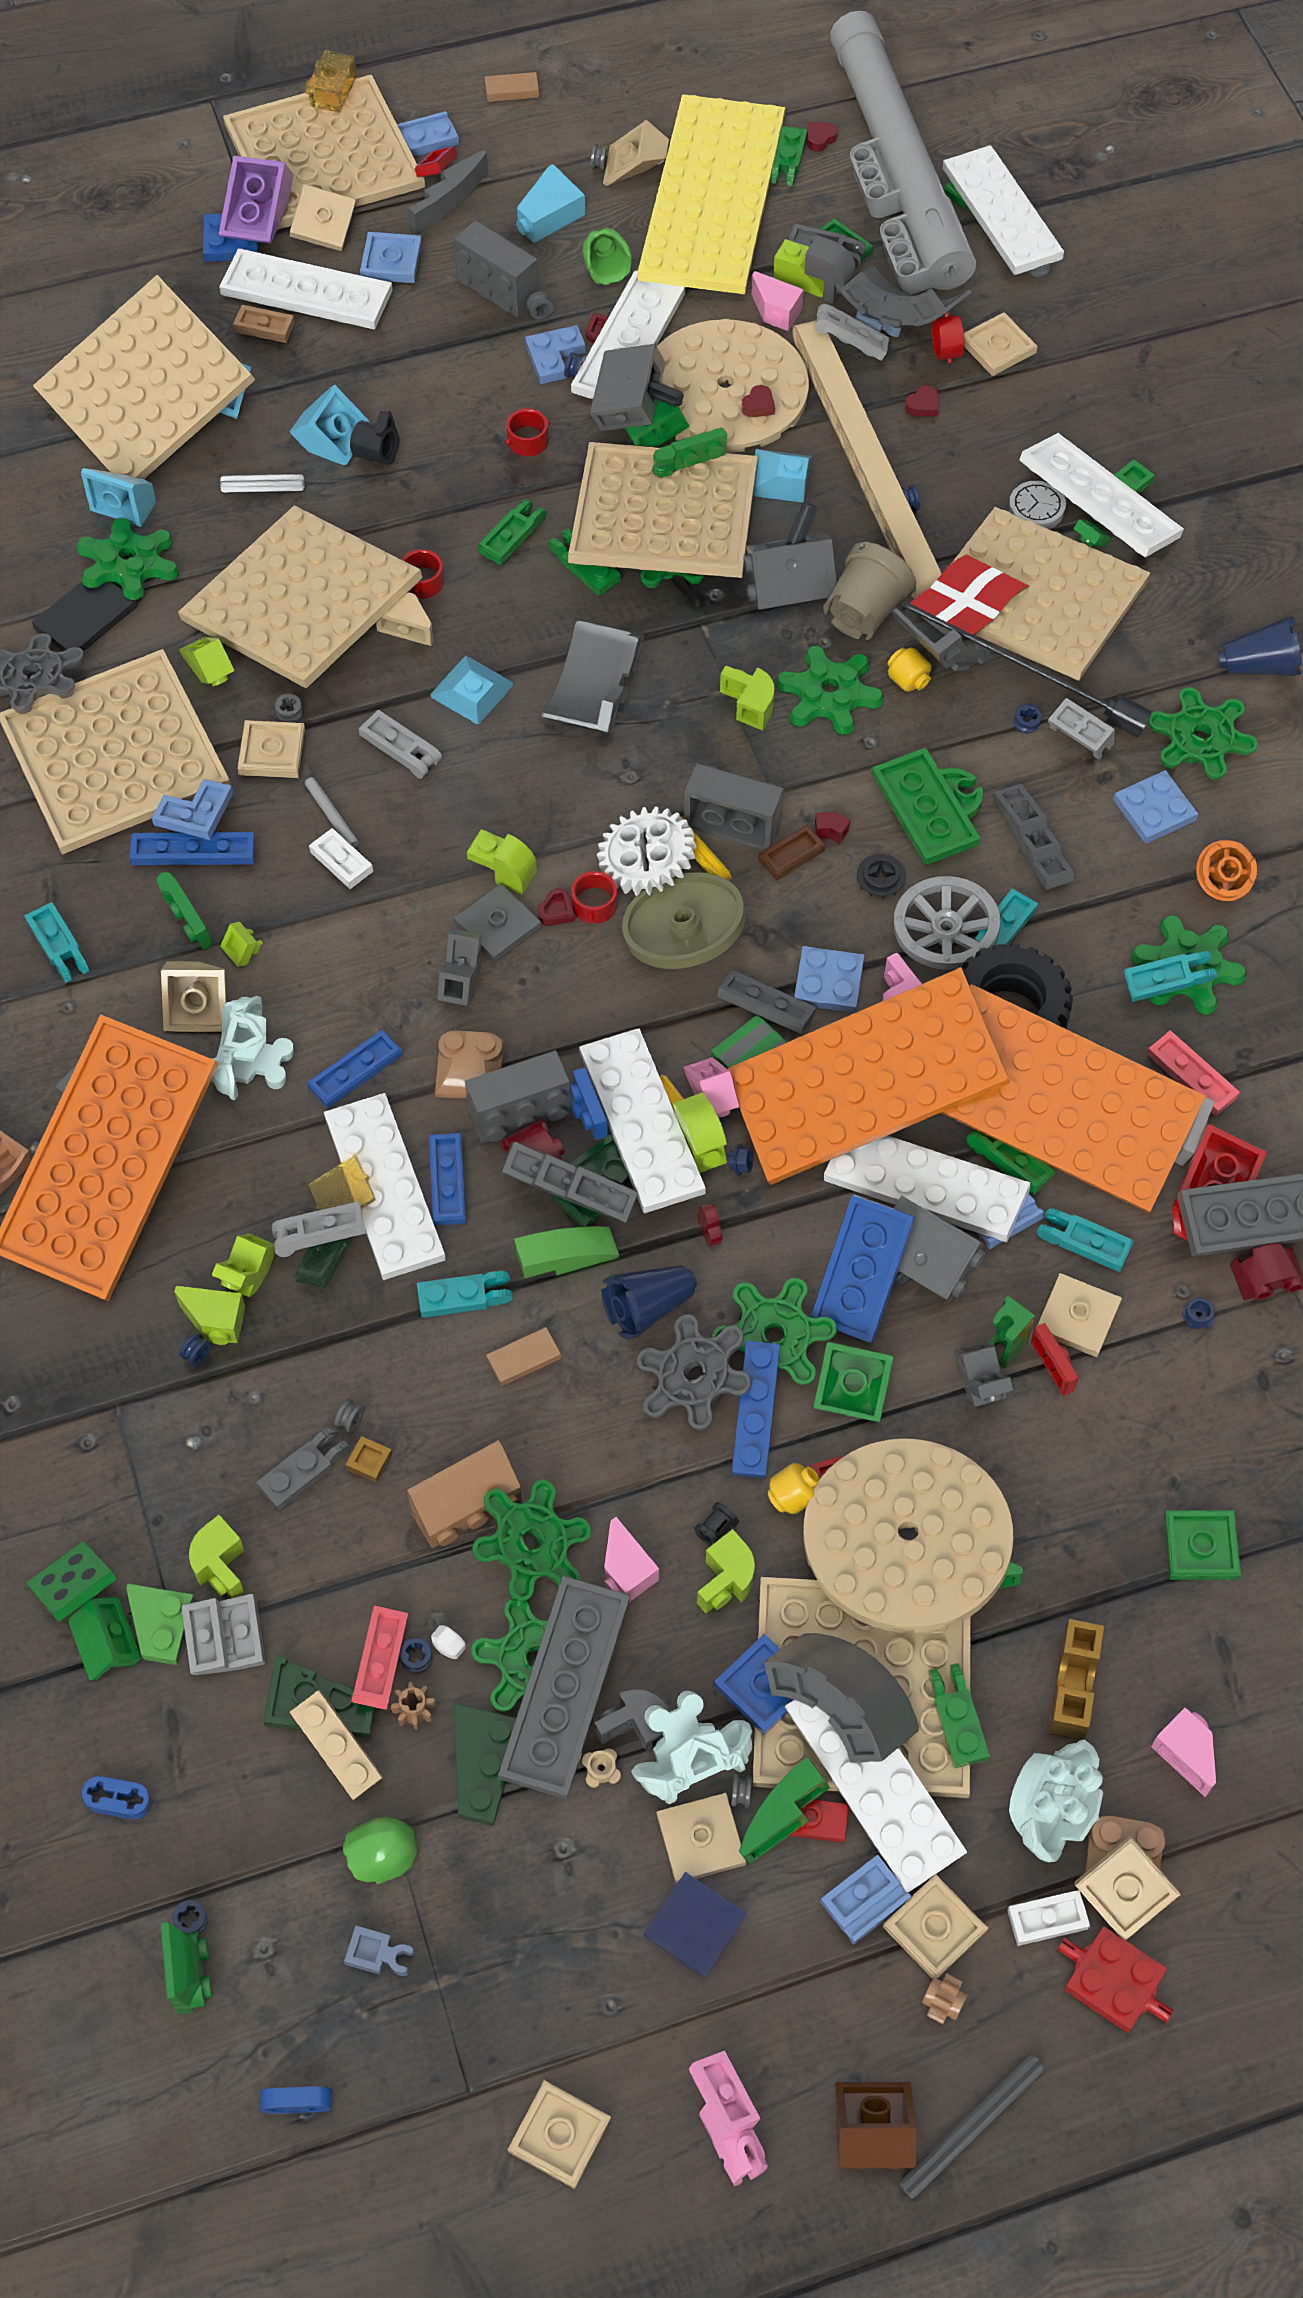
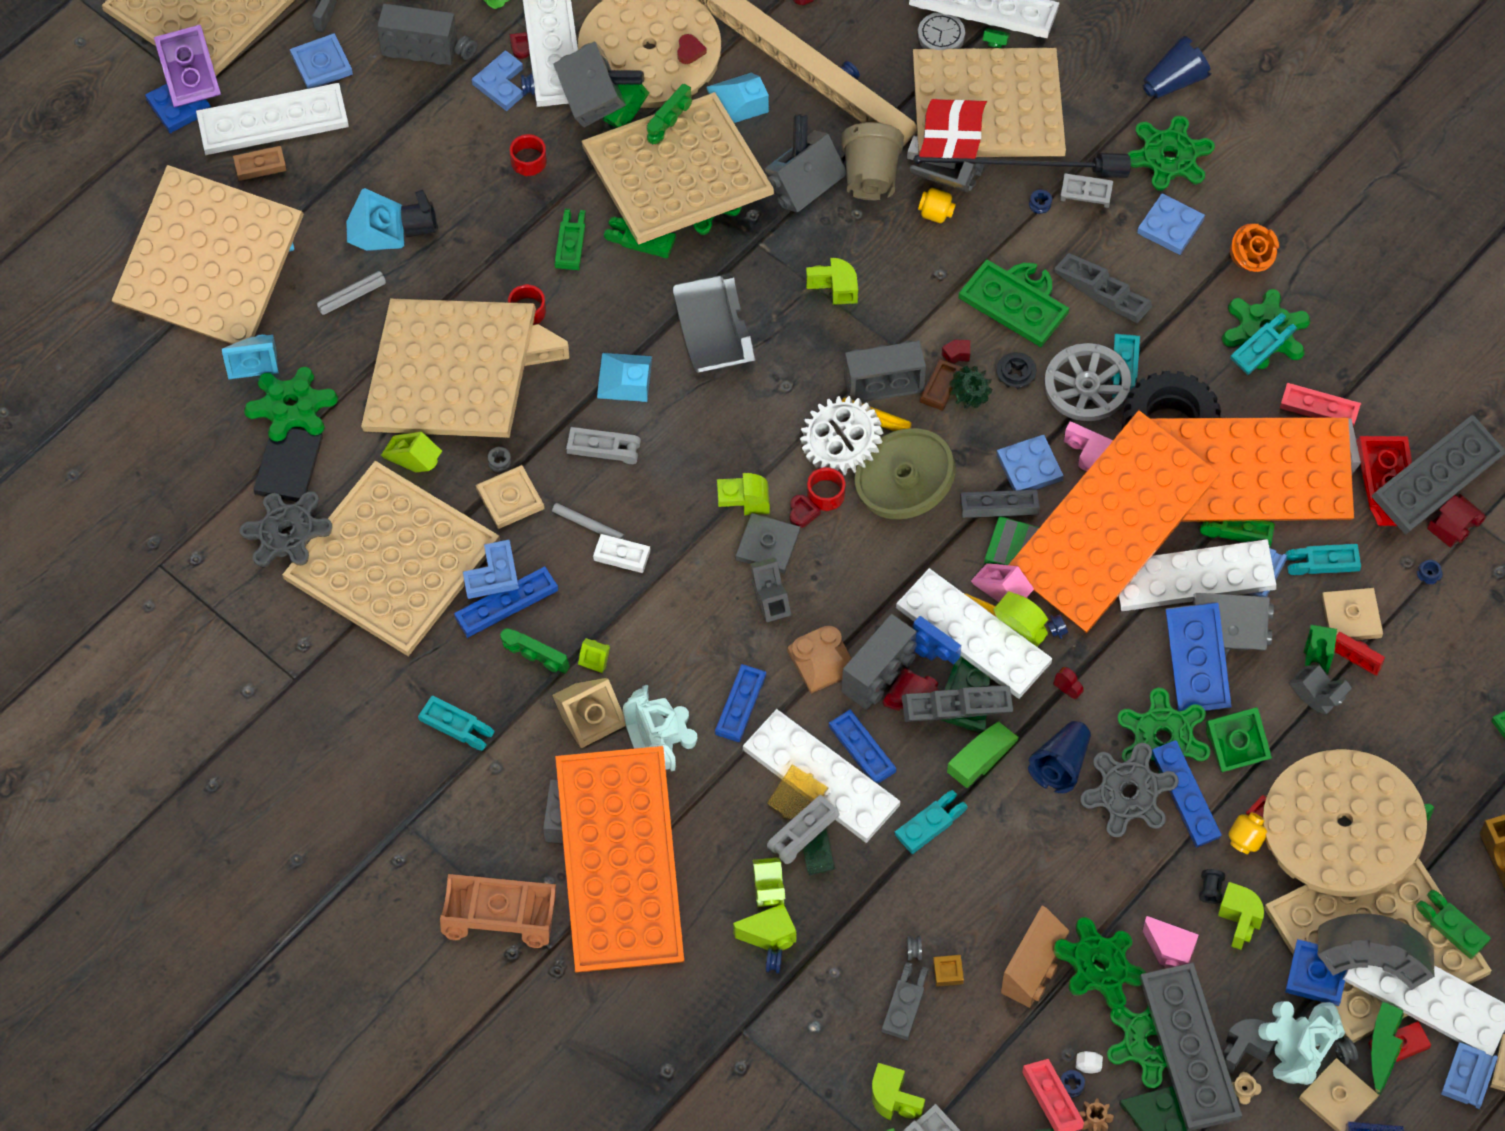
camera: 30 degrees left, 0 degrees up
(322, 217) = (246, 54): tan plate -> none
(523, 1356) = (1002, 843): medium nougat tile -> none
(828, 863) = (970, 377): none -> clear green gear
(831, 705) = (885, 262): green plate -> none

